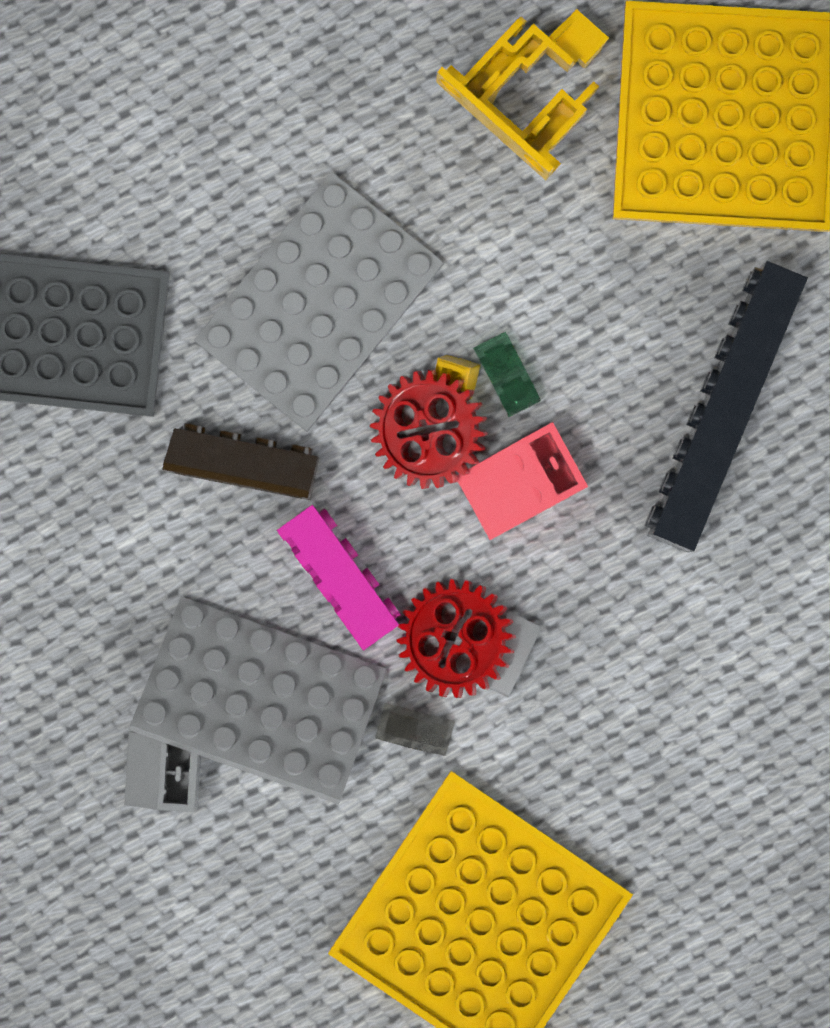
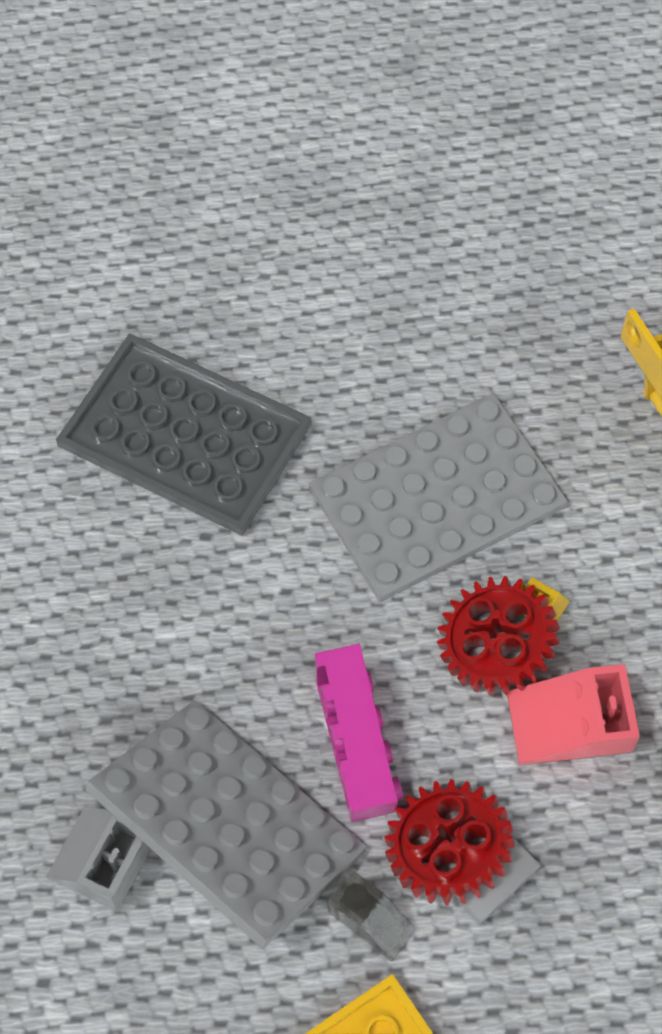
camera: 20 degrees right, 25 degrees down
(241, 463) = (303, 598): dark brown slope -> none
(507, 374) = (592, 619): clear green slope -> none

